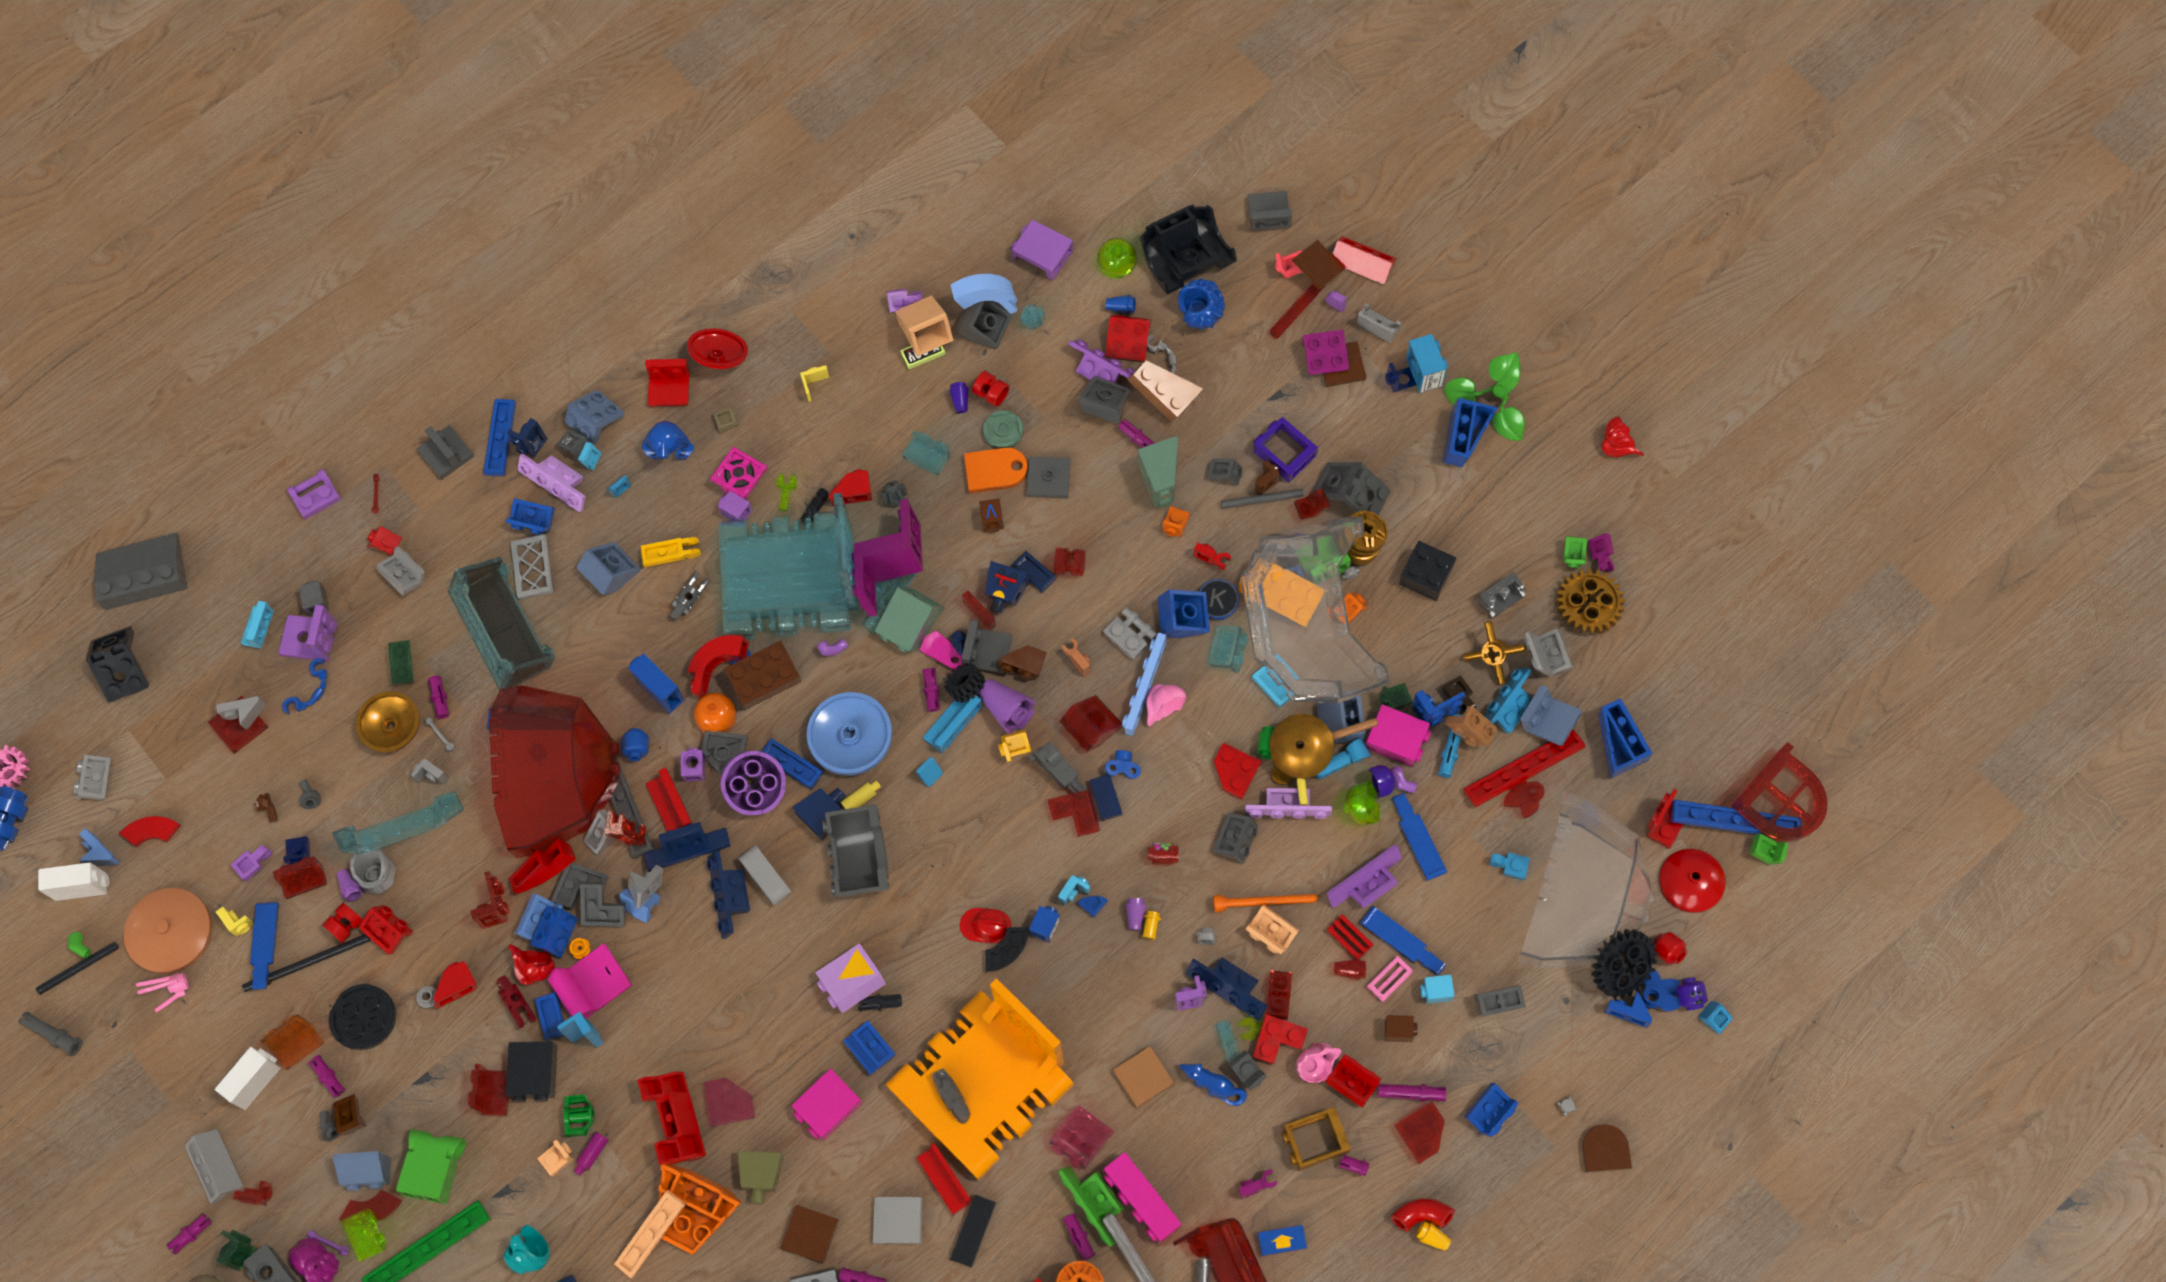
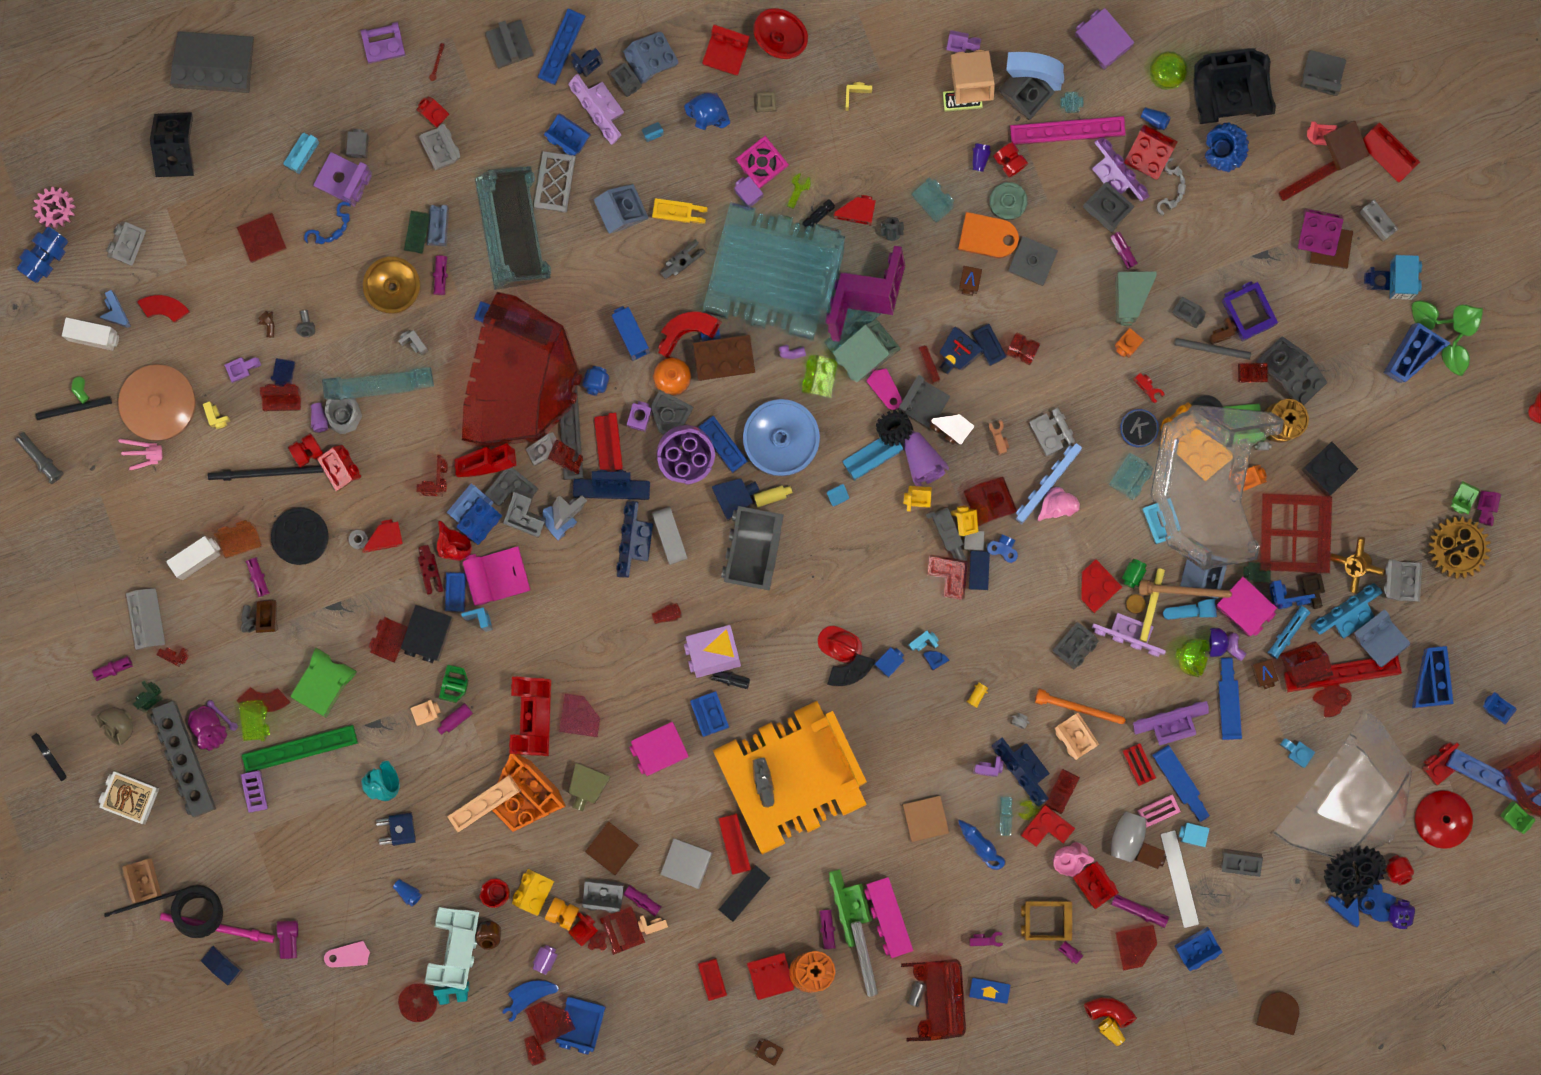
camera: 20 degrees right, 15 degrees up
(246, 709) = (274, 230): light grey slope -> none
(263, 942) = (235, 442): blue piece -> none
(363, 1170) = (267, 668): sand blue slope -> none
(422, 649) = (438, 225): none -> sand blue hinge
(449, 746) = (437, 323): light grey hinge -> none
(578, 942) = (491, 542): light orange plate -> none
(589, 456) = (636, 96): medium azure tile -> none
(790, 956) = (667, 614): none -> clear red cone
(869, 660) = (819, 376): none -> clear neon green bracket
(931, 689) = (863, 421): magenta pin -> none
(958, 641) = (902, 387): dark blue bar -> none
(1038, 345) = (1067, 130): none -> dark pink tile
(1073, 748) = (966, 520): none -> yellow bracket
(1080, 1138) = (857, 851): clear pink plate -> none
(1088, 768) = (974, 541): none -> light grey tile
(1135, 912) = (968, 679): medium lavender cone -> none
(1163, 853) = (1010, 638): clear red brick -> none
(1164, 389) = (1163, 219): wedge -> none
(1183, 613) = (1104, 432): blue slope -> none
(1247, 1071) = (1012, 845): dark grey bracket -> none
(1317, 747) = (1172, 583): pearl gold dish -> none
(1336, 300) = (1349, 184): medium lavender tile -> none
(1351, 969) = (1129, 791): clear red cone -> none
(1368, 1016) = (1128, 837): none -> light grey piece
(1441, 1044) = (1179, 879): none -> white sticker
(1444, 796) = (1265, 674): none -> reddish brown brick
(1447, 635) = (1323, 533): none -> clear red window
(1472, 727) = (1312, 625): medium nougat bracket -> none
(1485, 770) = (1307, 664): none -> clear red slope
(1502, 595) = (1385, 514): dark grey hinge -> none
(1567, 1106) = (1262, 967): light grey piece -> none
(1700, 745) = (1499, 708): none -> blue bracket
(1715, 1016) = (1414, 939): dark azure slope -> none

